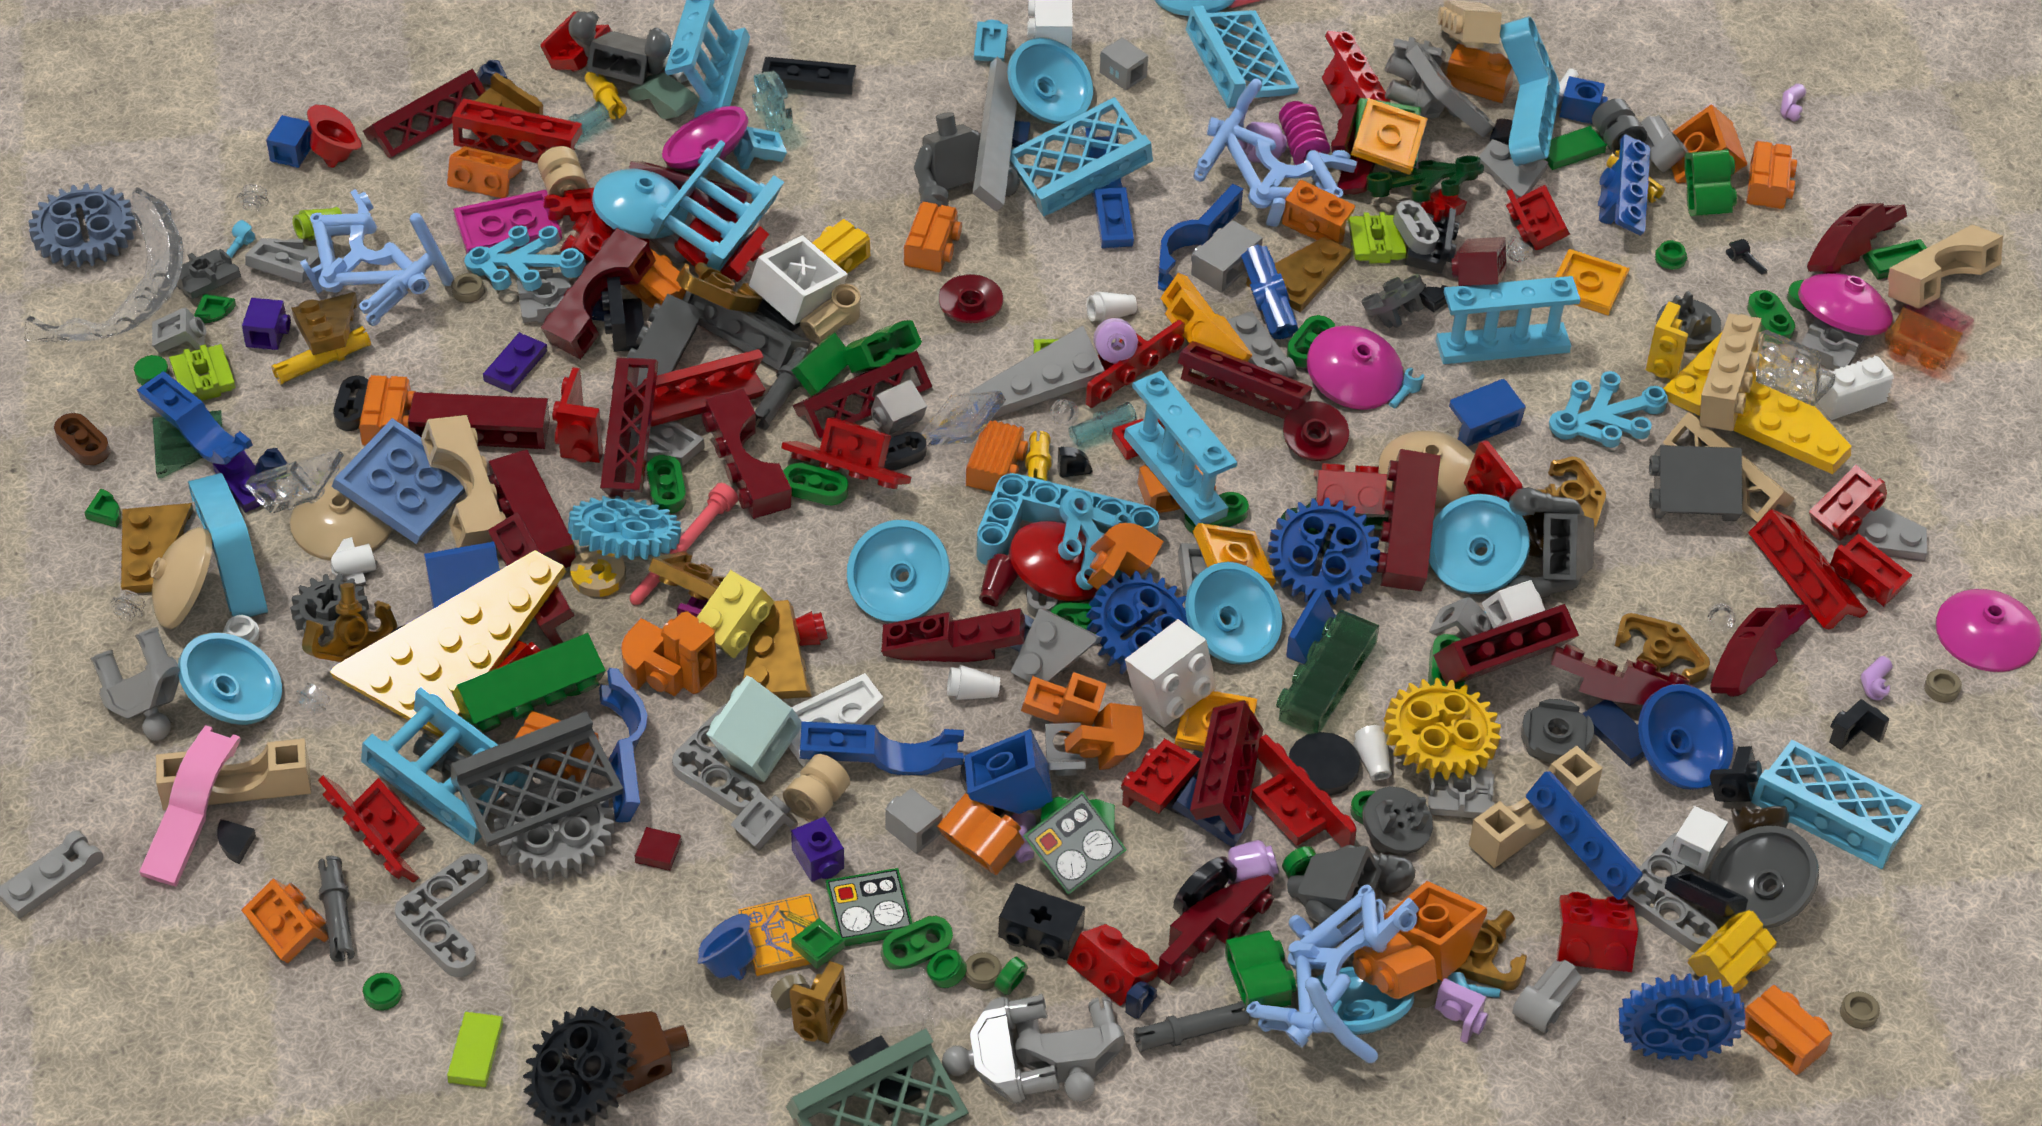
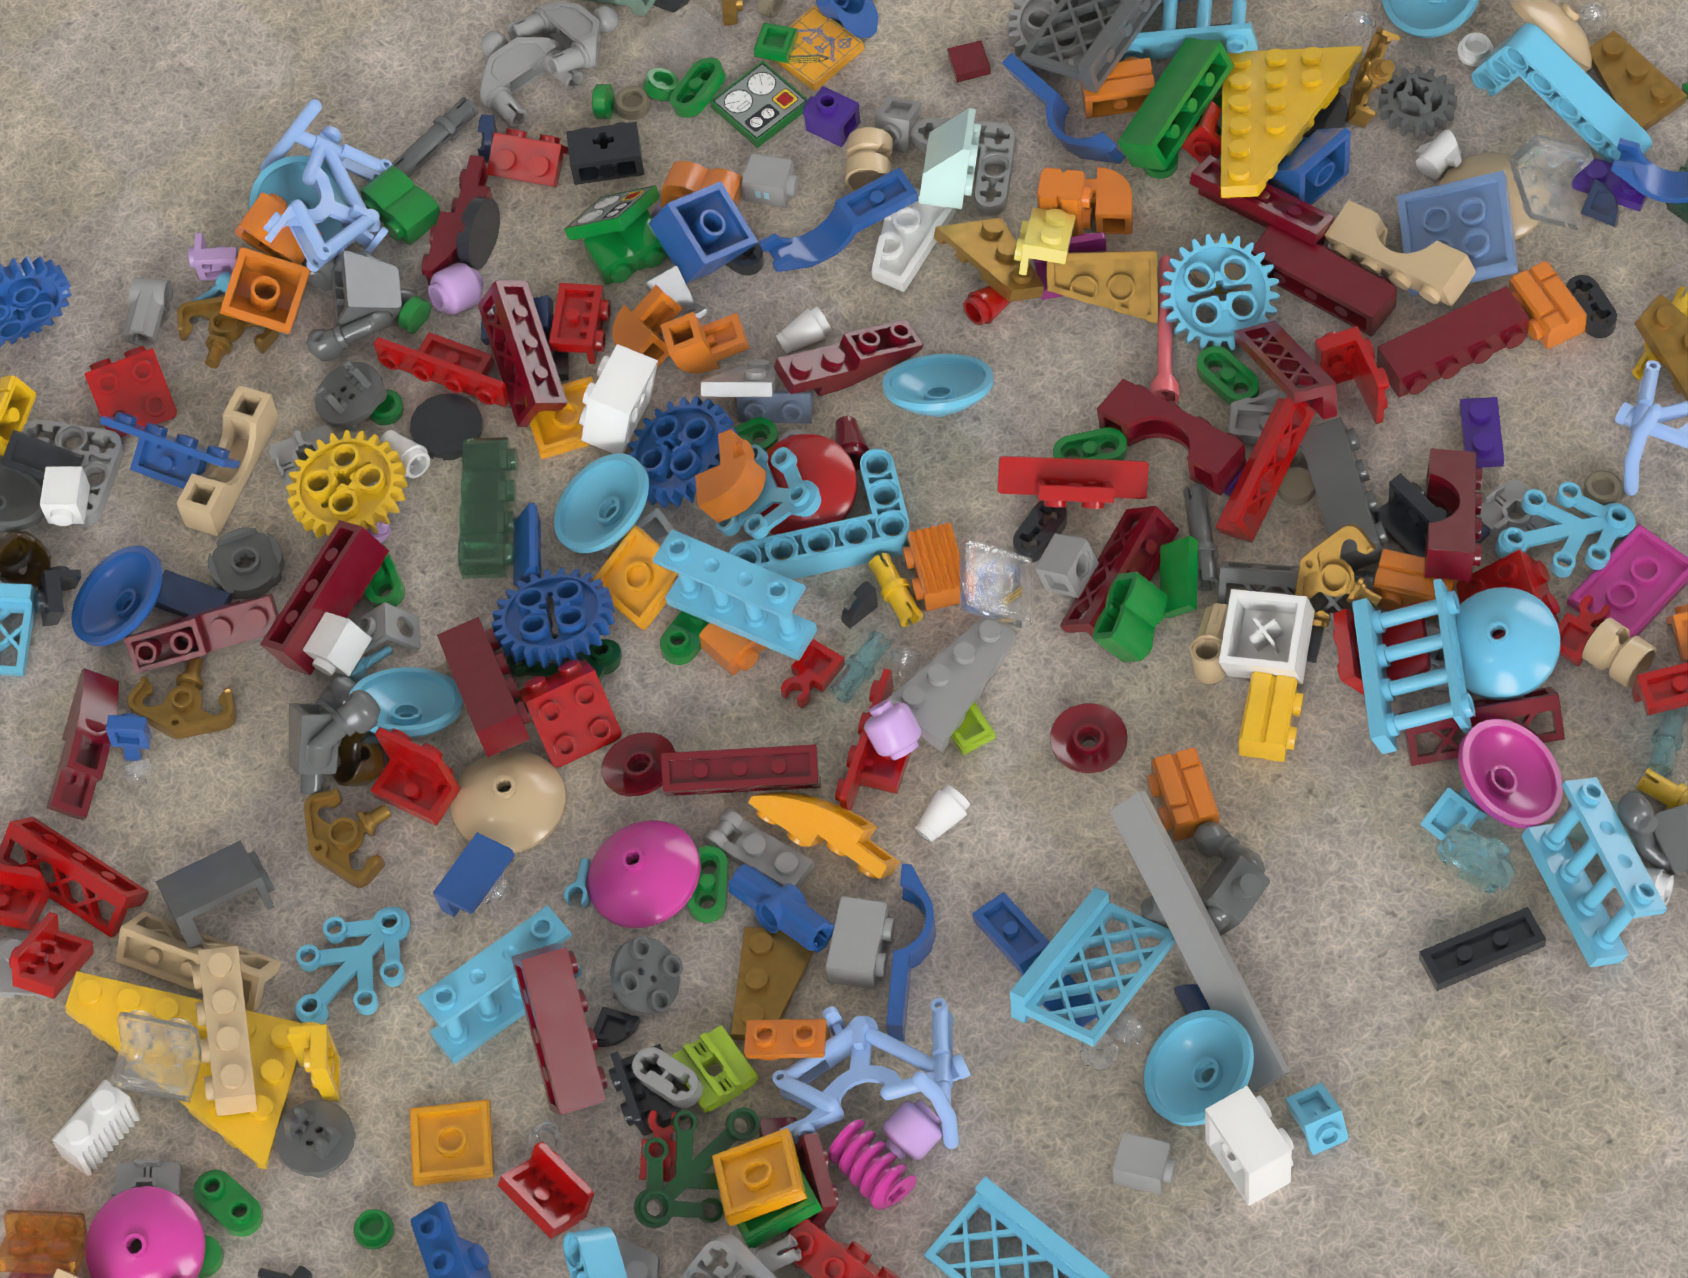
camera: 160 degrees right, 10 degrees up
(1721, 618) = (130, 733): none -> blue plate

